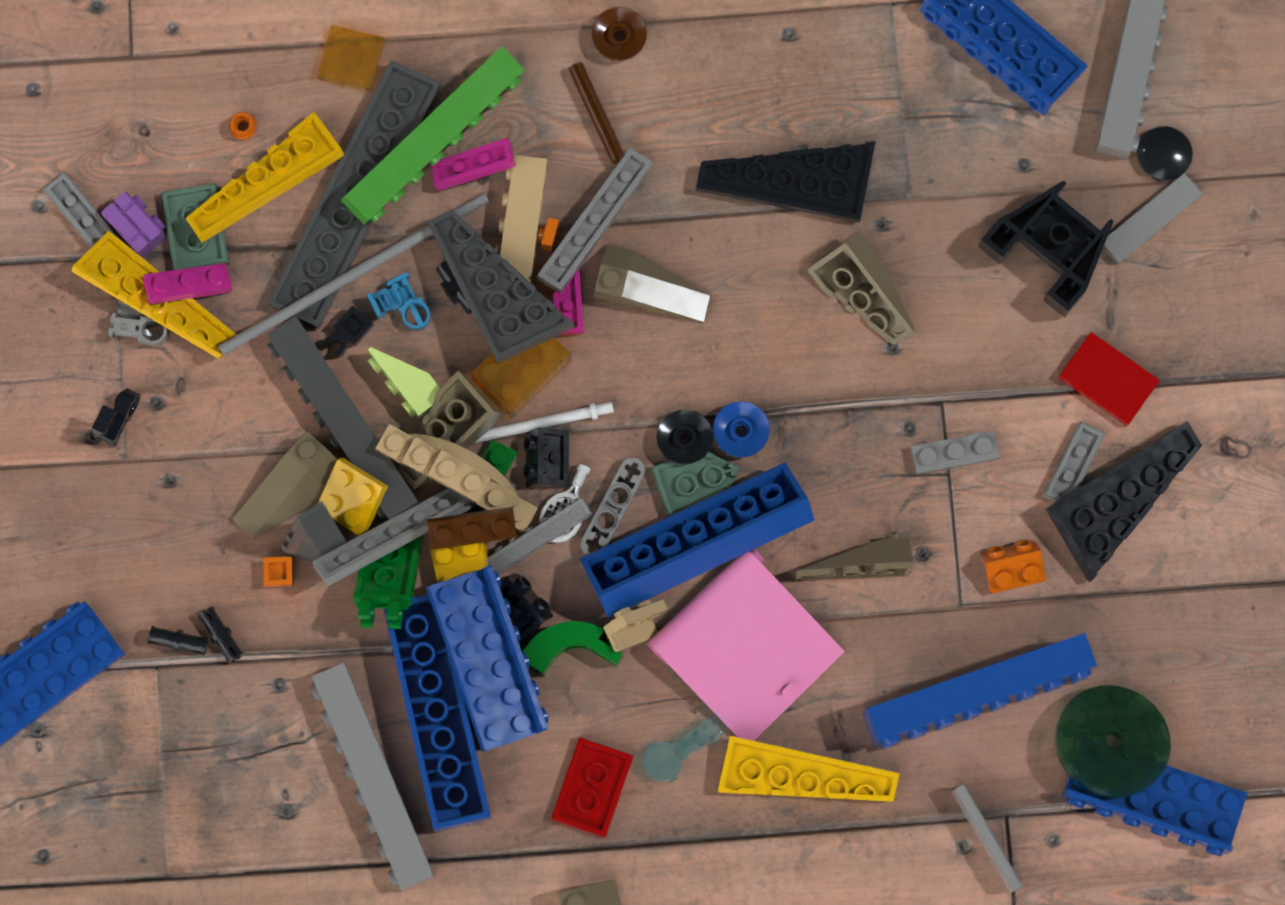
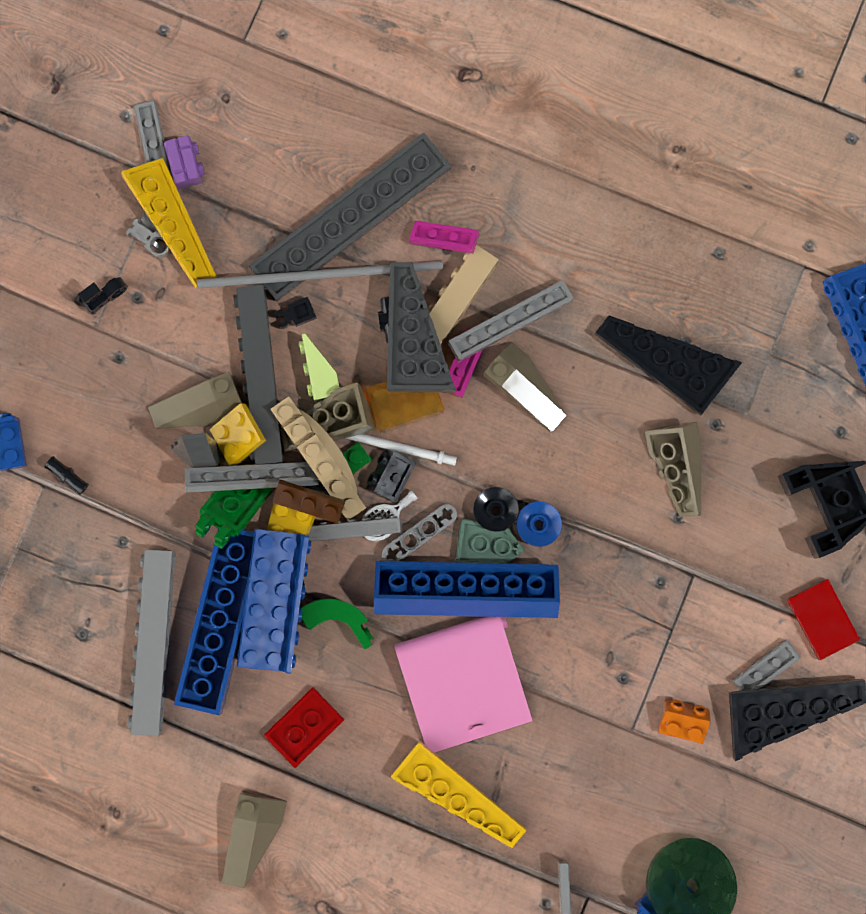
camera: 25 degrees right, 5 degrees up
(184, 245) = (226, 186): sand green tile -> none
(187, 283) = (199, 223): dark pink plate -> none
(220, 635) = (98, 486): black pin -> none
(239, 118) = (293, 123): orange plate -> none
(278, 571) = (160, 461): orange plate -> none
(292, 161) = (312, 172): yellow wing -> none
(351, 58) = (397, 117): clear yellow plate -> none
(400, 295) = (346, 307): dark azure piece -> none
(433, 135) = (426, 201): bright green brick -> none
(527, 609) = (321, 573): black bracket -> none
(548, 234) = (472, 314): orange plate -> none
(596, 112) = (552, 233): reddish brown axle -> none
(617, 21) = (600, 183): reddish brown dish -> none
(634, 626) = (389, 629): tan bracket -> none
(661, 761) = (361, 733): clear light blue piece -> none
(874, 560) = (591, 667): dark tan wedge -> none
(954, 452) = (684, 617): light grey plate -> none
(978, 690) = (615, 801): blue brick -> none

